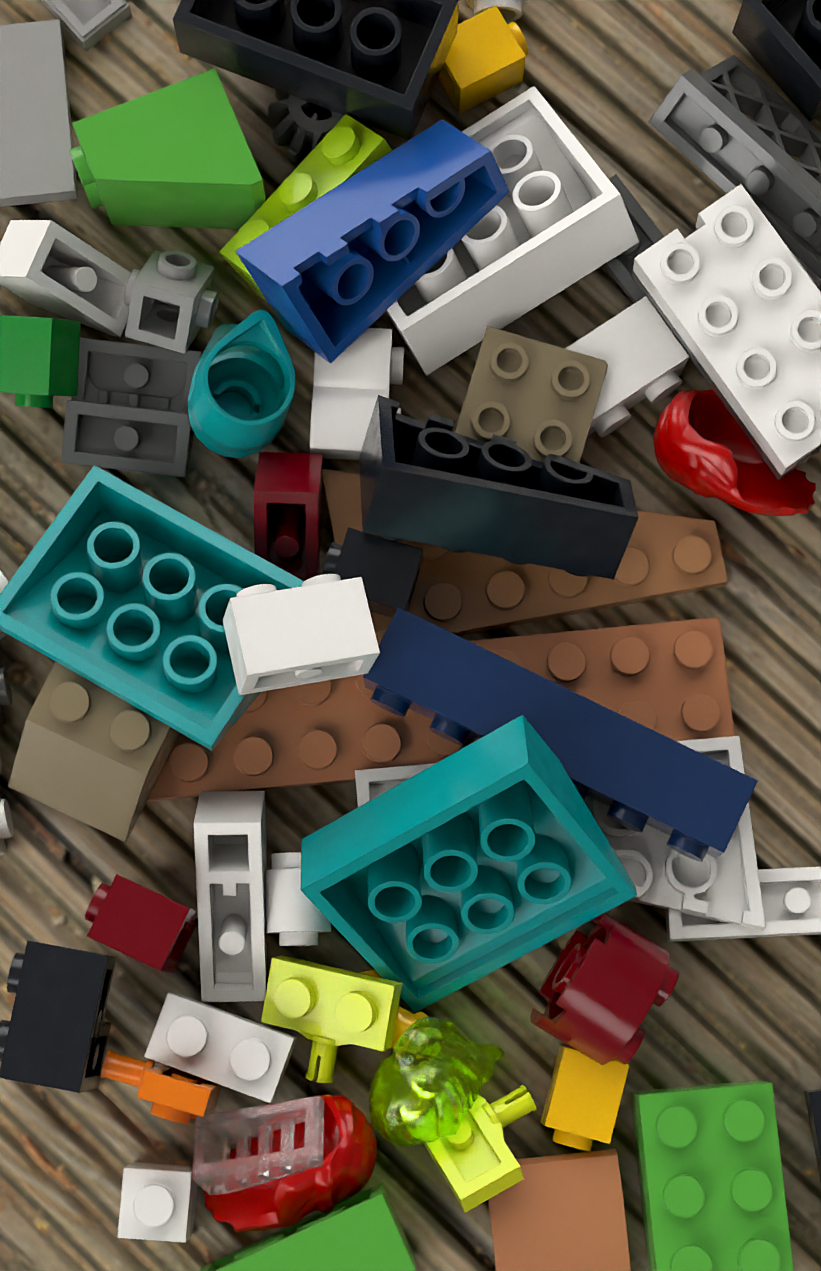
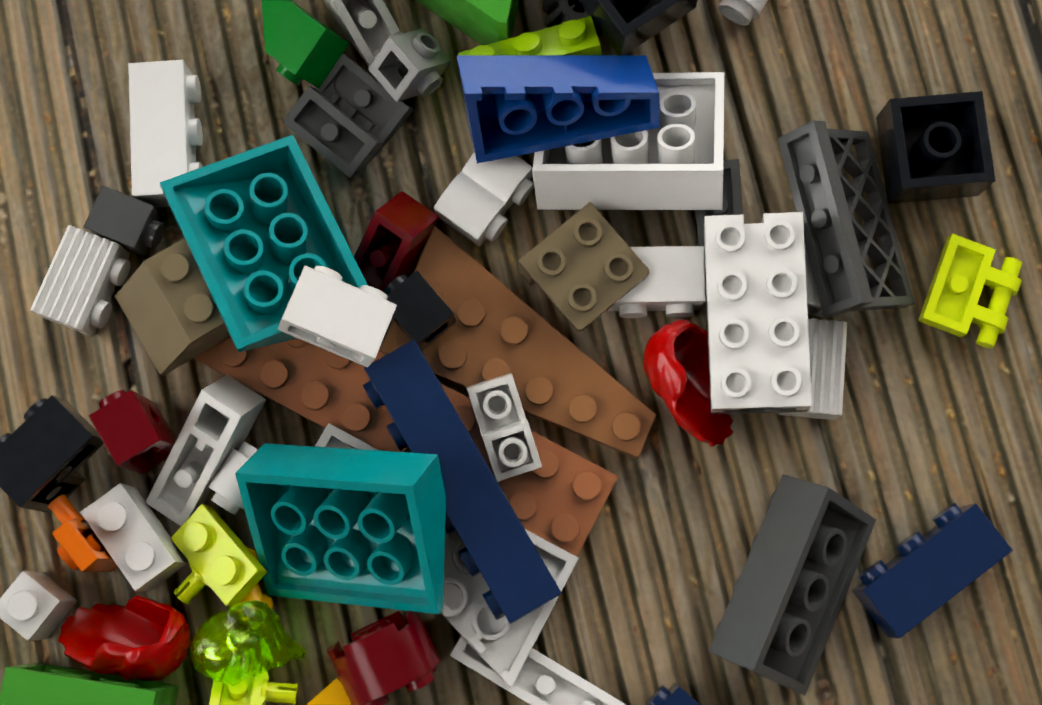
camera: 35 degrees right, 0 degrees up
(219, 1130) = (95, 587): clear slope -> none
(242, 387) = (417, 145): teal helmet -> none
(483, 59) = (704, 36): yellow brick -> none
(490, 497) = (518, 308): black wedge -> none
(558, 642) = (504, 427): none -> white slope

